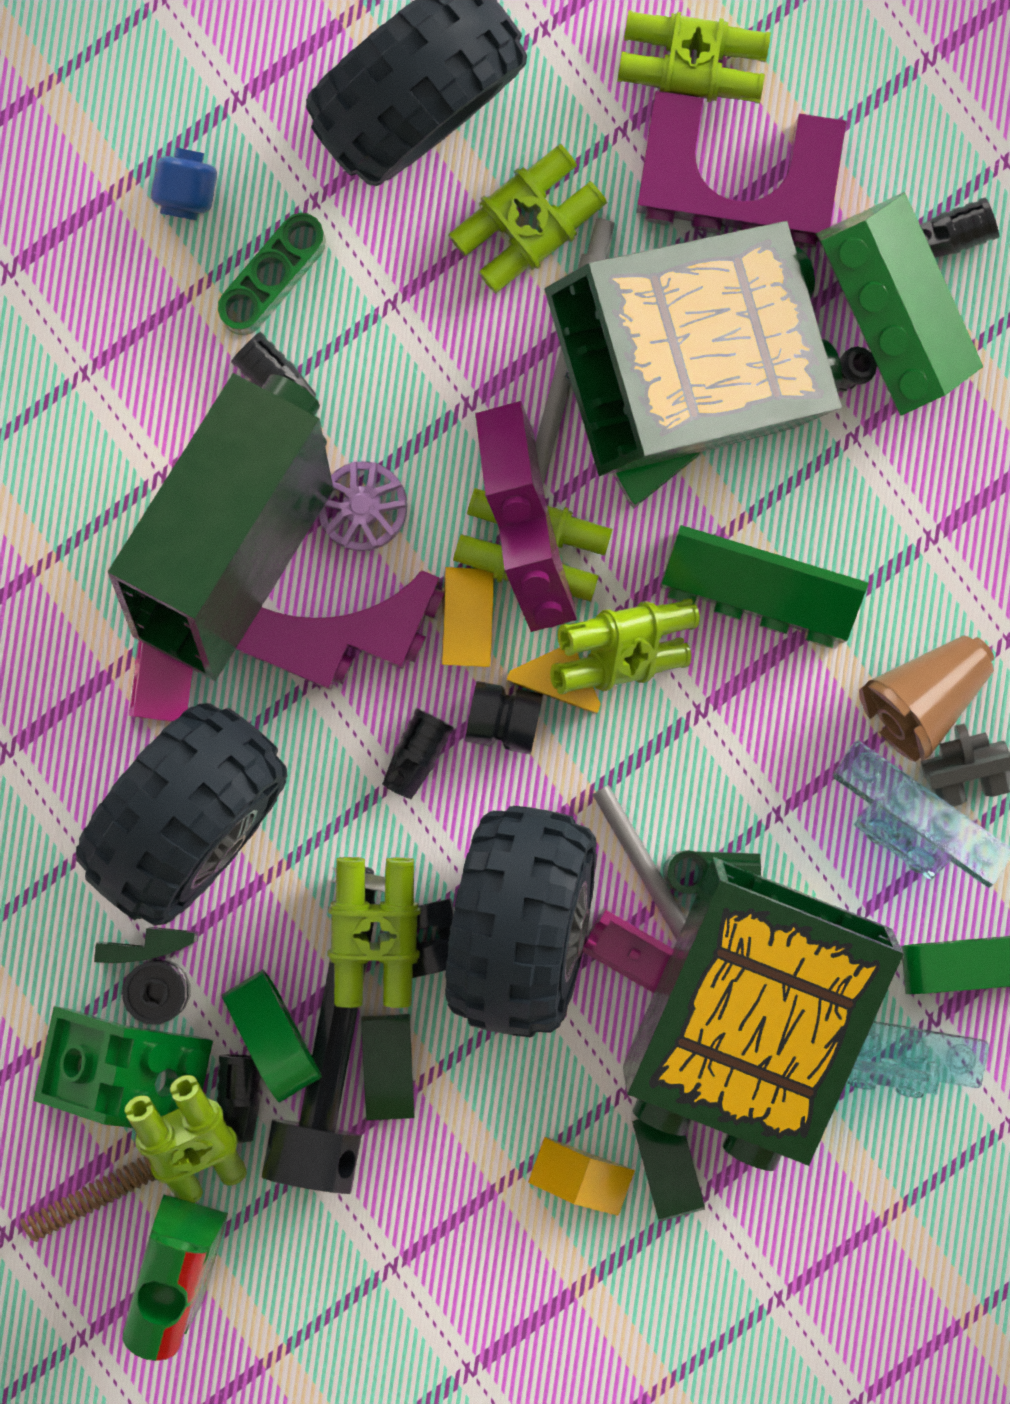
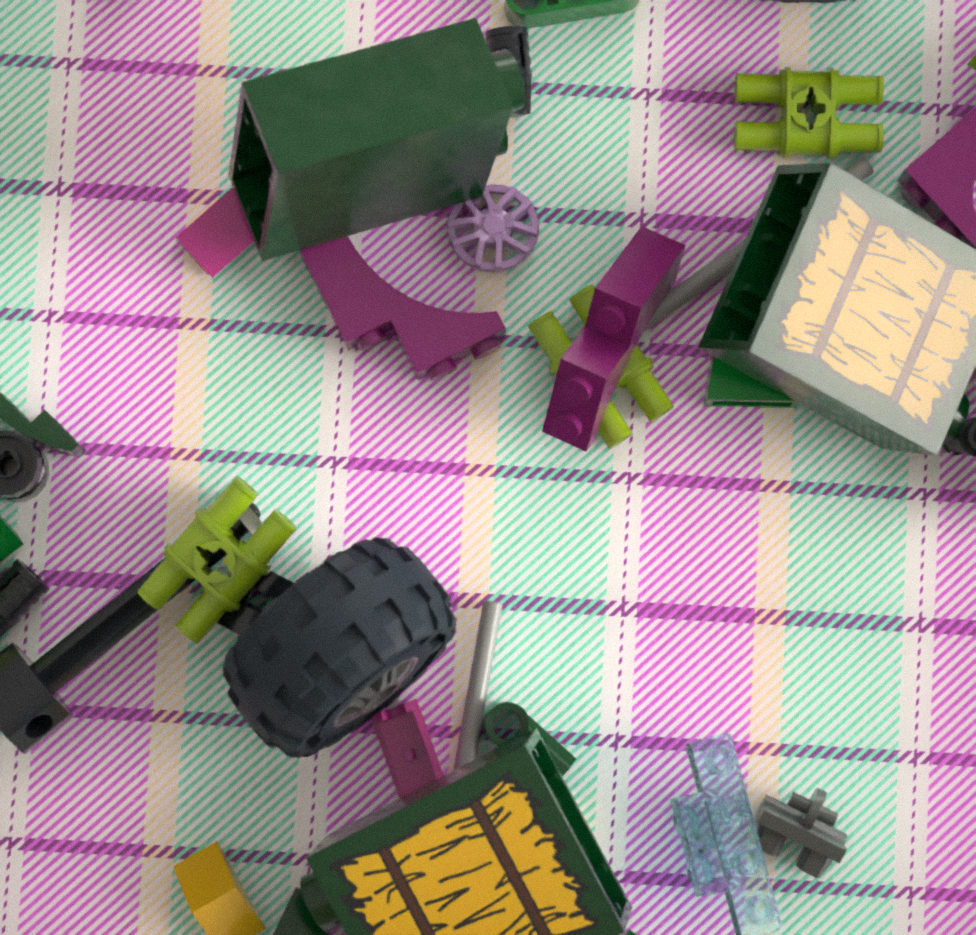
camera: 35 degrees right, 5 degrees down
(180, 813) = (144, 336): black wheel -> none
(271, 1036) = (68, 576): green beam -> none
(387, 1067) = (140, 680): dark green slope -> none
(416, 753) = (372, 452): black hinge -> none
(467, 617) = (502, 380): yellow slope -> none
(503, 717) = (464, 481): black wheel -> none
(536, 677) = (534, 484): yellow slope -> none
(624, 646) = (606, 501): lime pin -> none
(763, 586) = (756, 547): green slope -> none
(927, 695) = (816, 744): medium nougat cone -> none

